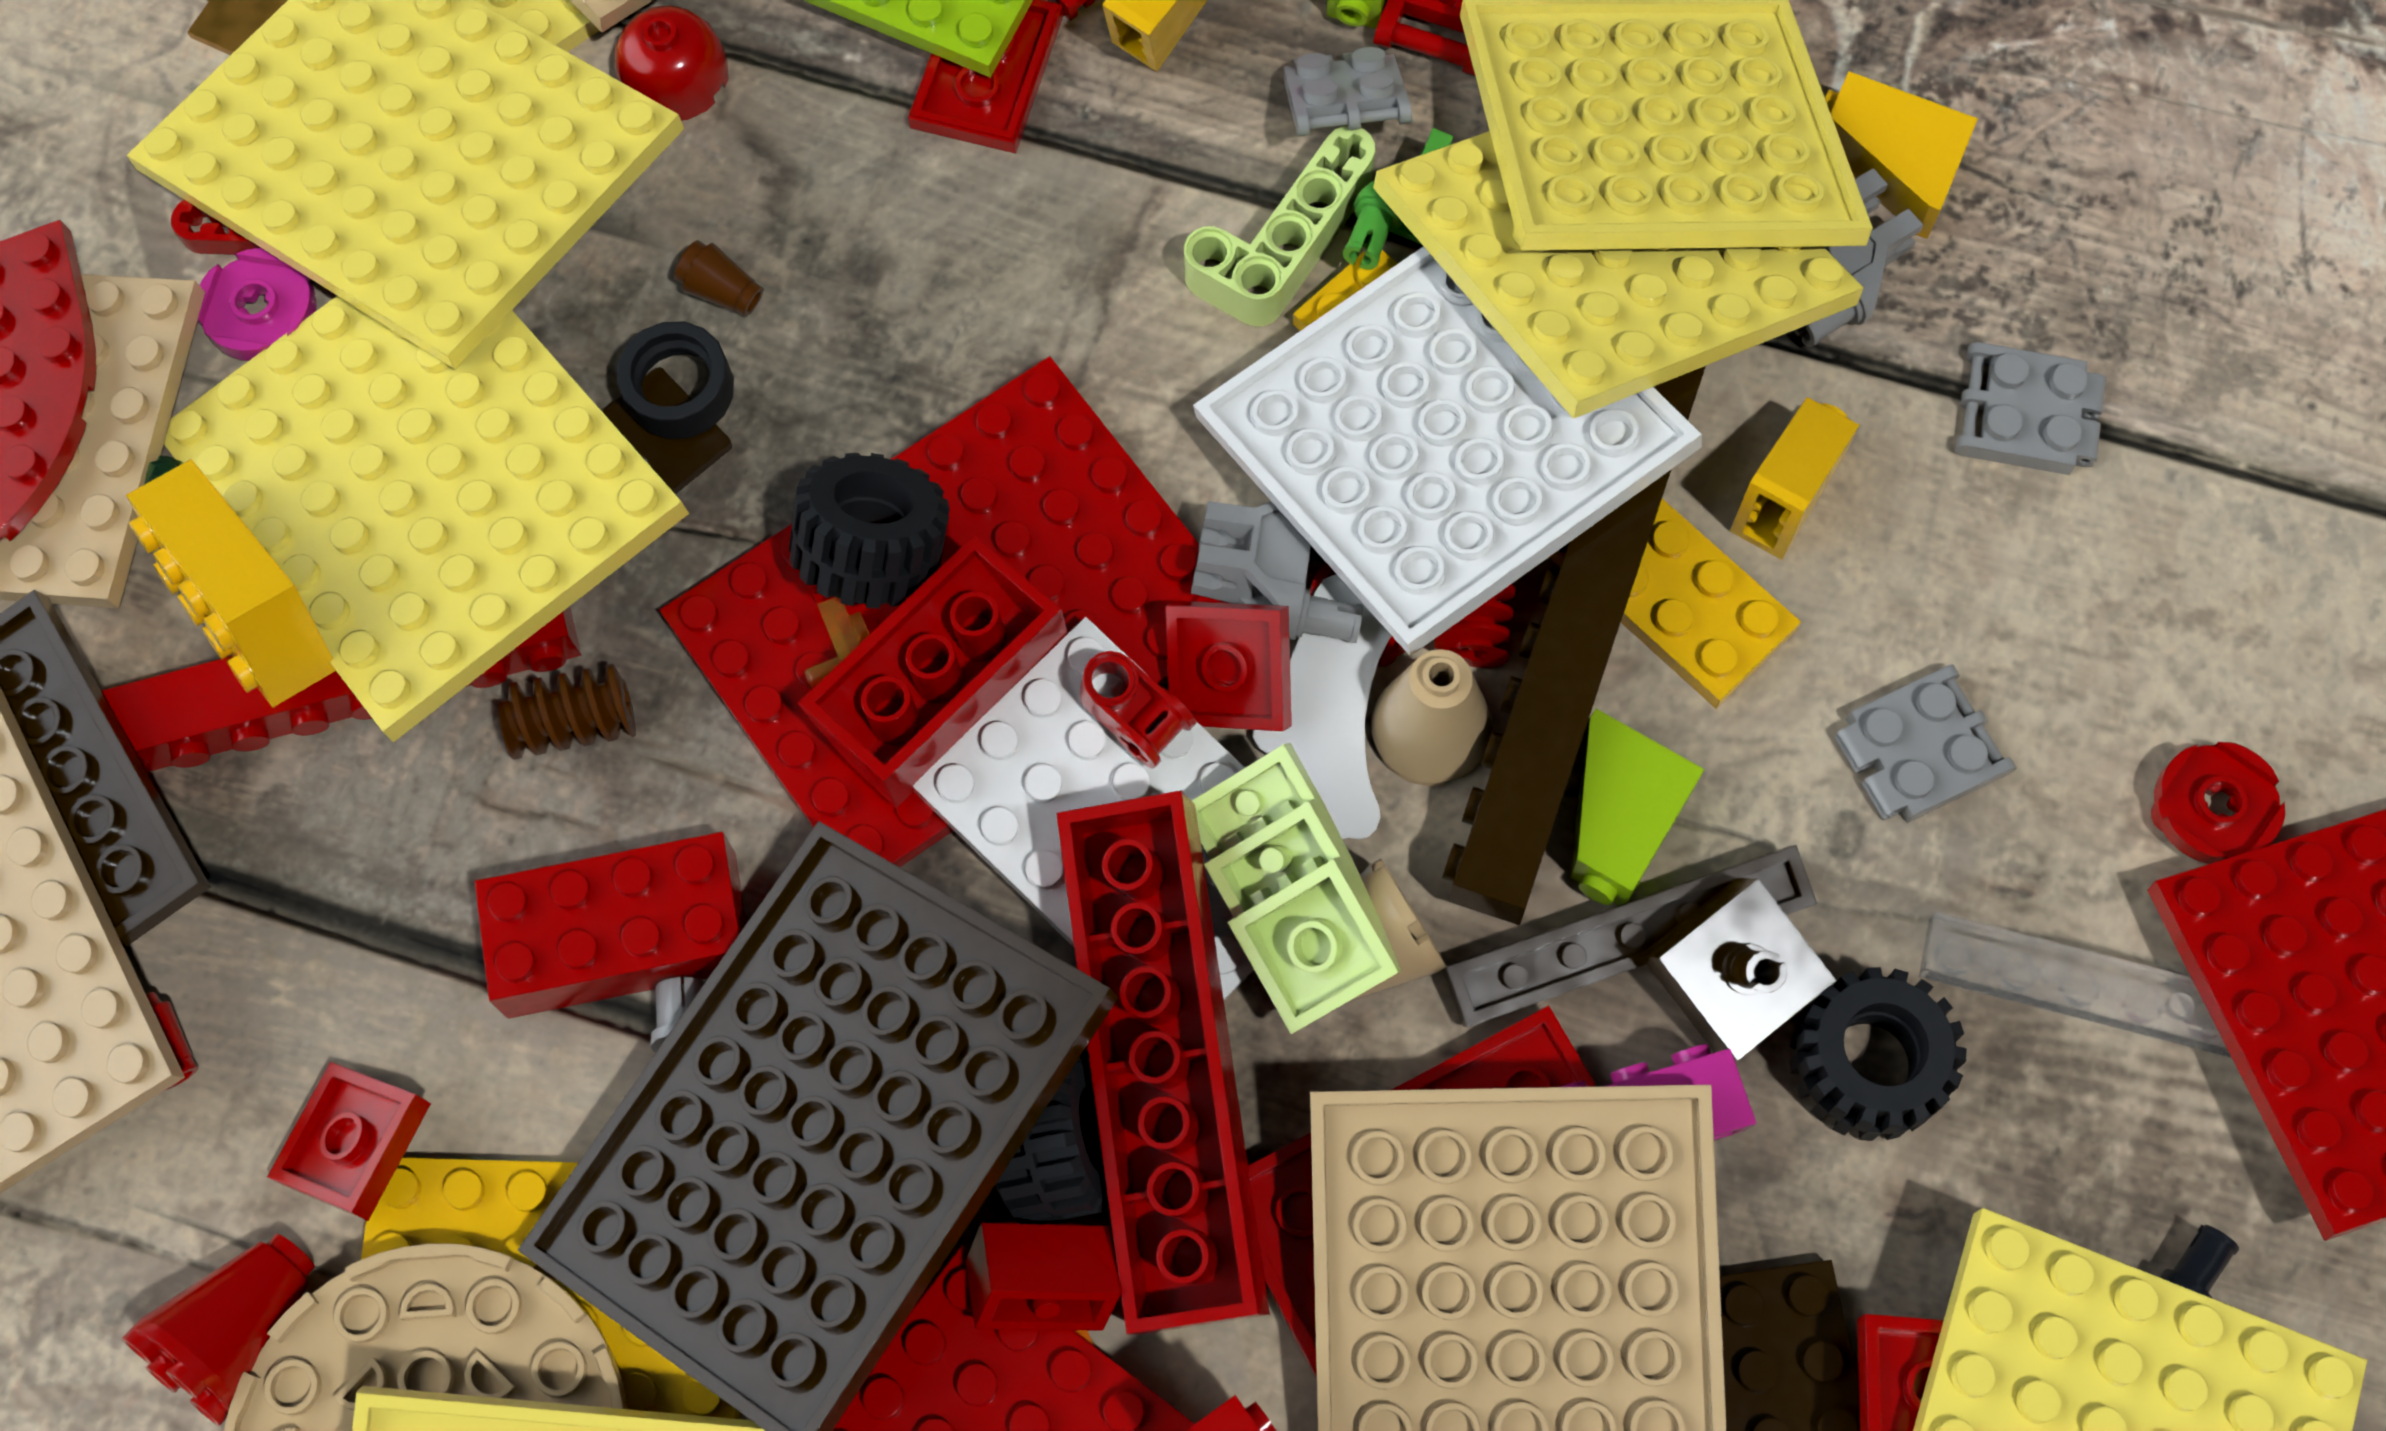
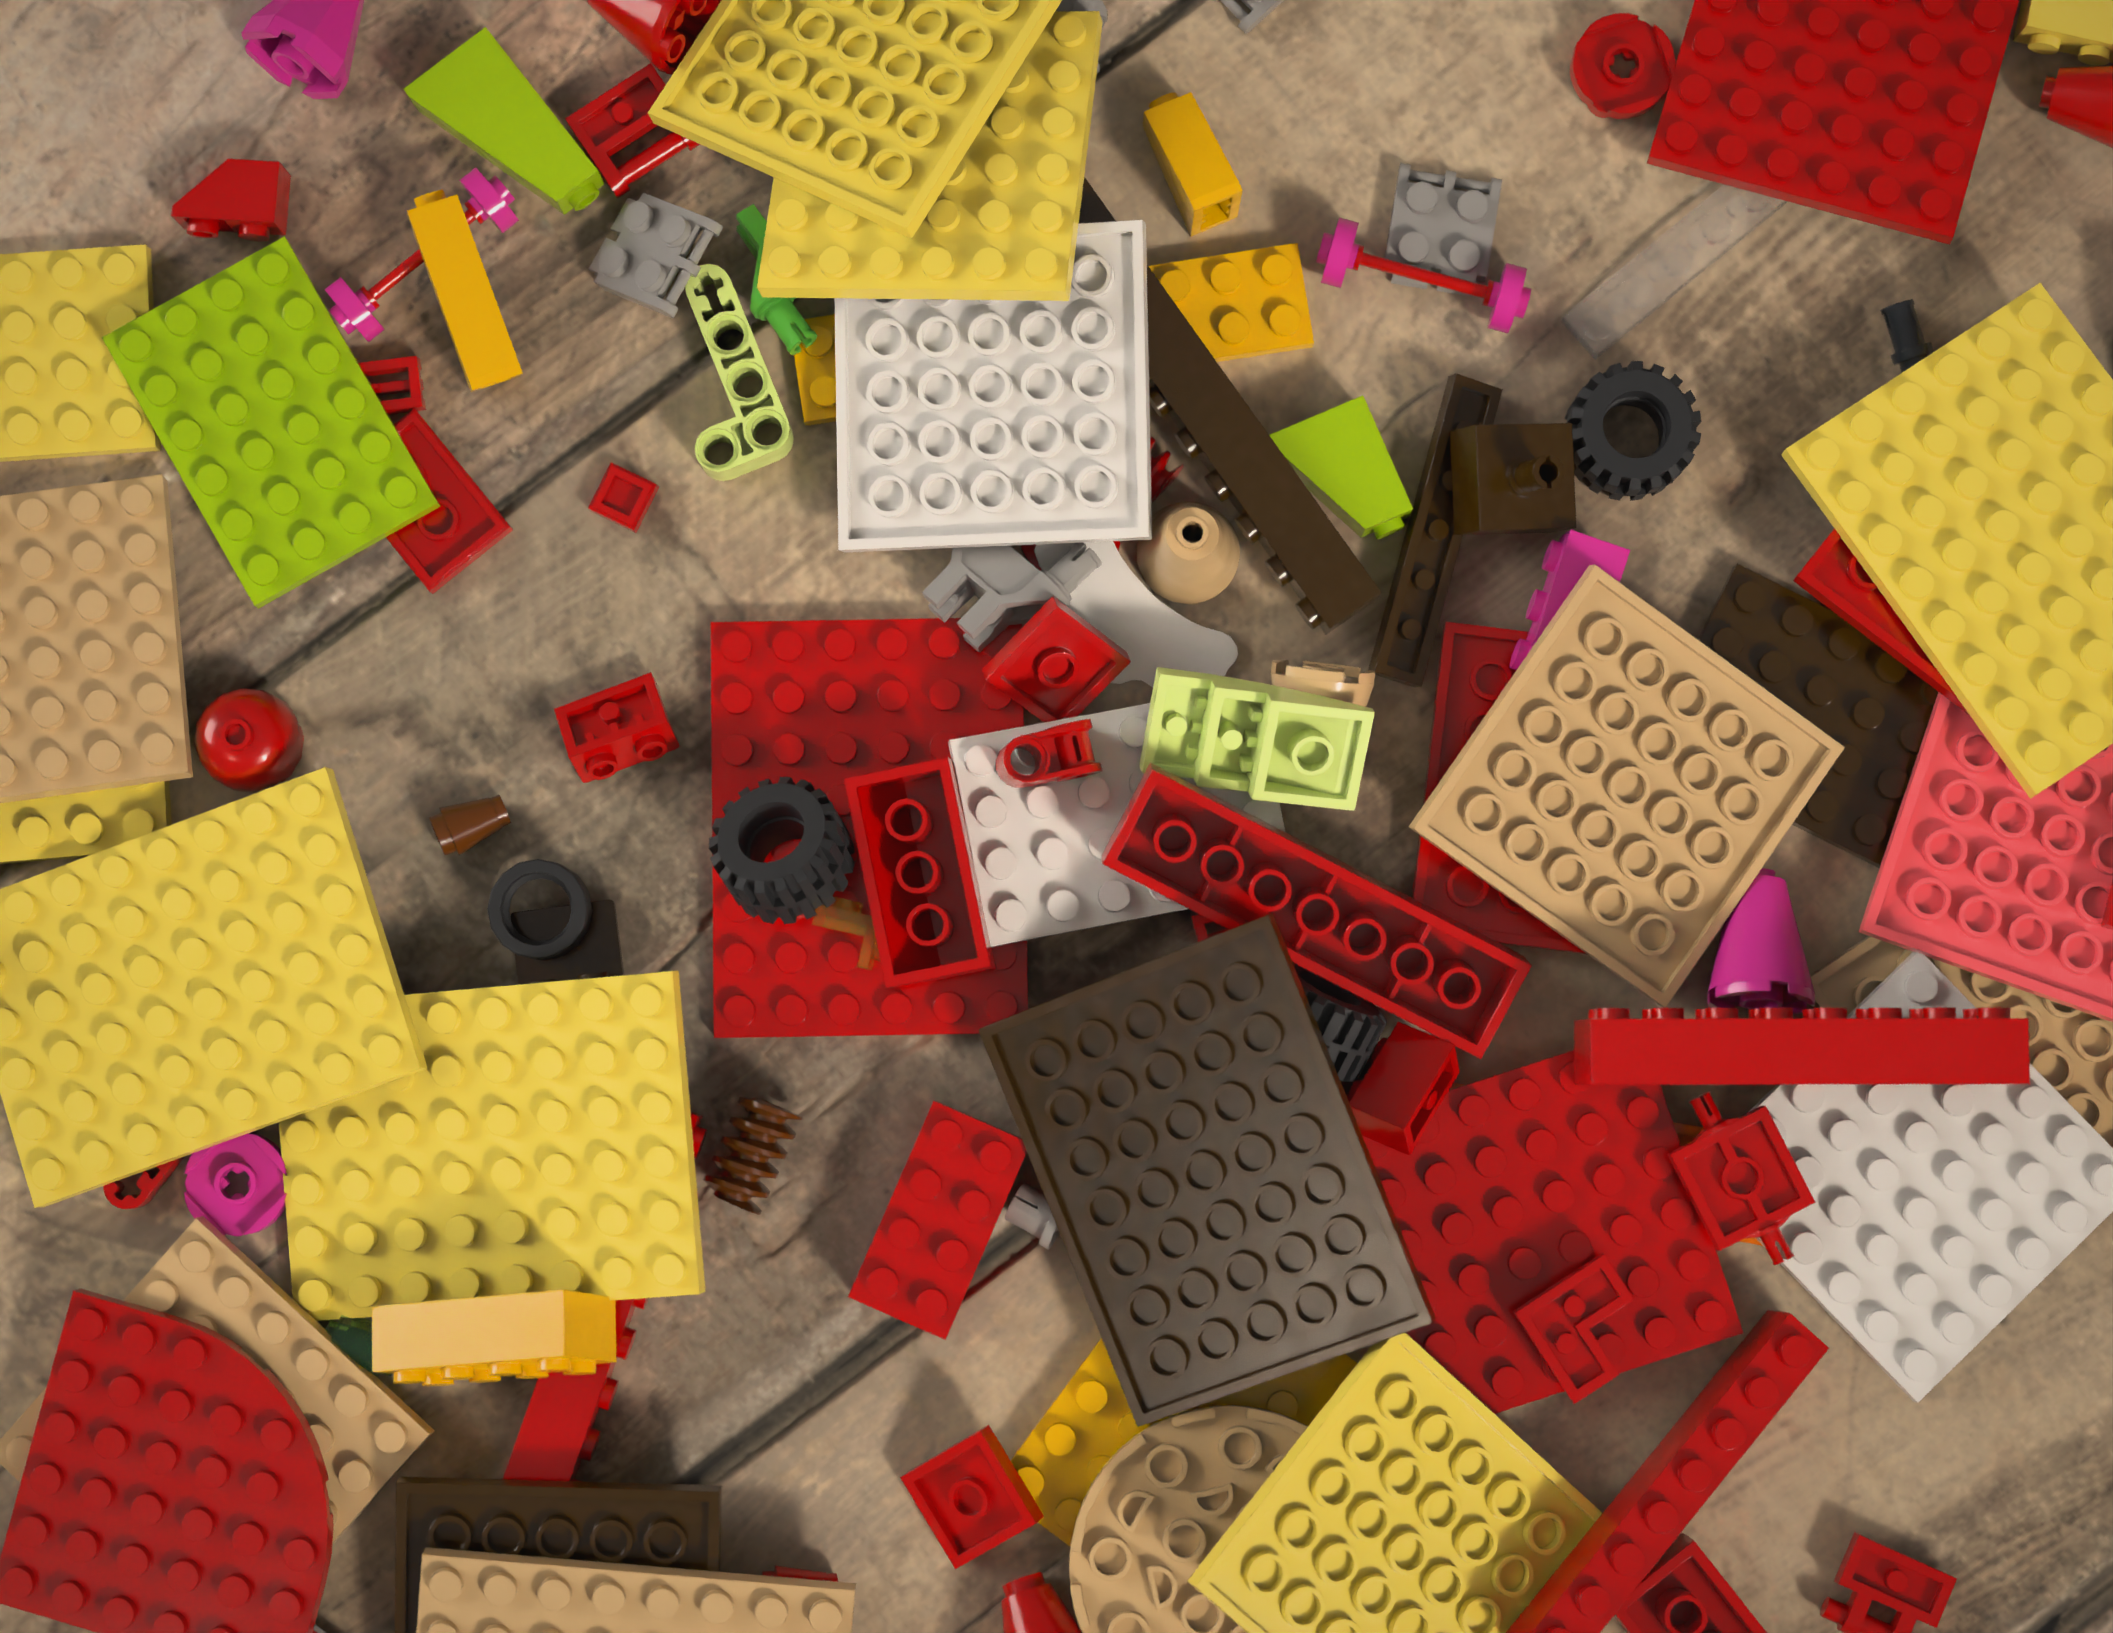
camera: 55 degrees left, 15 degrees up
(892, 342) = (616, 728): none -> red bracket
(1110, 217) = (623, 497): none -> red tile
(1907, 843) = (1506, 298): none -> dark pink axle

